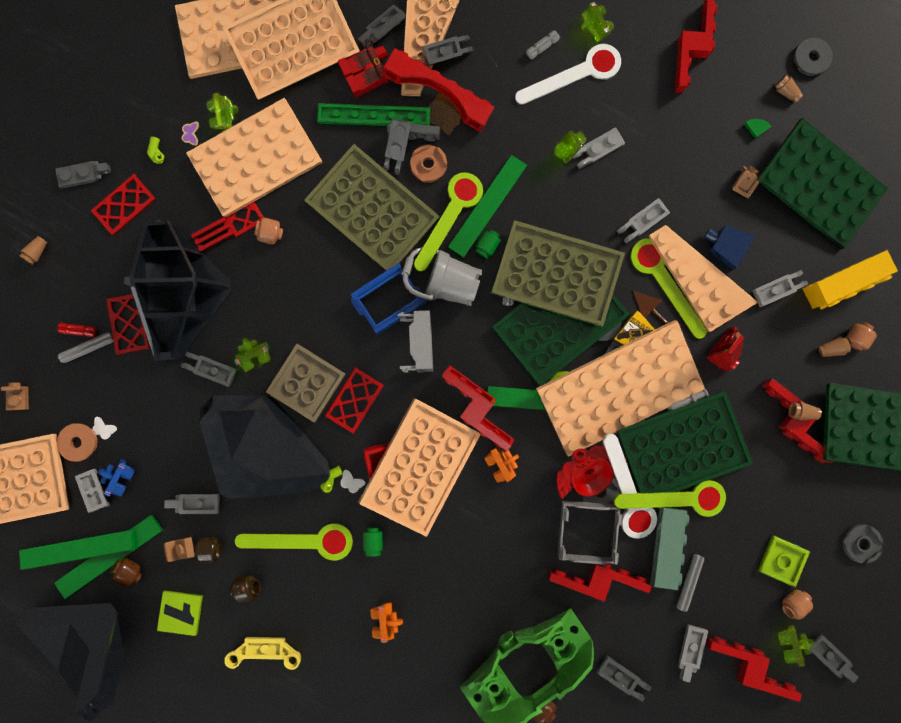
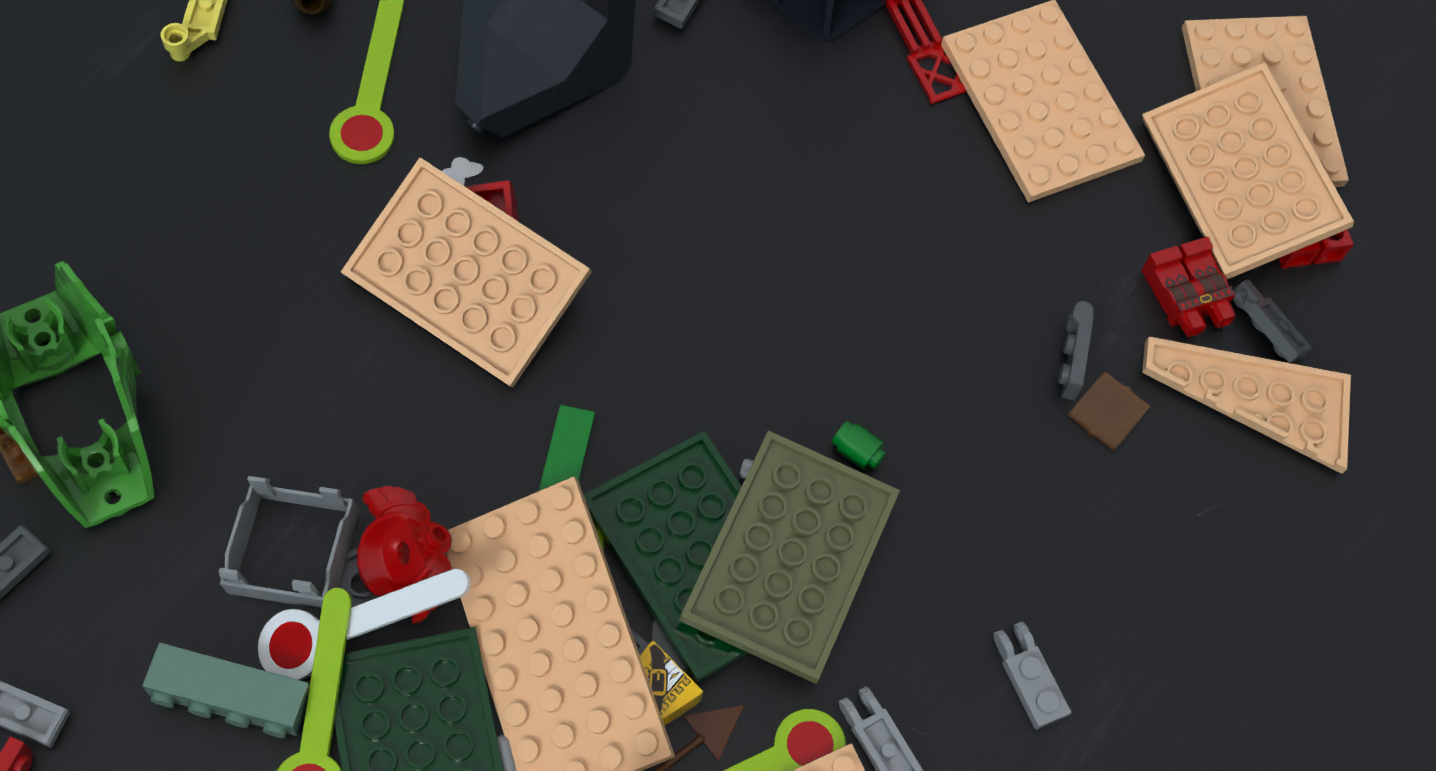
camera: 85 degrees right, 20 degrees down
(189, 130) = (1093, 14): medium lavender sticker -> none
(224, 112) = (1122, 59): clear neon green hips -> none
(244, 358) = (706, 63): clear neon green hips -> none
(268, 231) = (913, 99): nougat head -> none
(305, 383) = (643, 123): dark tan plate -> none
(327, 486) = (470, 137): lime arm -> none
(360, 415) = (601, 221): red window -> none
(371, 114) = (1109, 292): green tile -> none
(372, 208) = (938, 266): olive plate -> none
(372, 541) = (349, 187): green brick -> none
(373, 285) = (779, 315): blue piece -> none
(388, 622) = (204, 189): orange hips -> none
(397, 143) = (1051, 313): dark grey hinge -> none
(404, 69) = (1187, 337): red arch -> none
(420, 341) = (696, 275): light grey piece -> none
(428, 174) = (1011, 387): nougat tile -> none
(445, 50) = (1226, 418): dark grey hinge -> none
(448, 280) = (801, 355): light grey piece -> none
(465, 192) = (959, 420): lime piece -> none
(475, 412) = (556, 384): red bracket -> none
(487, 206) = (932, 460): green tile -> none
(505, 462) = (447, 416): orange hips -> none
(543, 44) = (1237, 600): light grey axle -> none
(569, 145) = (1035, 610): clear neon green hips -> none
(595, 22) = (1295, 700): clear neon green hips -> none
(599, 580) = (192, 554): red bracket -> none
(601, 62) = (1200, 707): white piece -> none
(690, 582) = (149, 729): light grey axle -> none

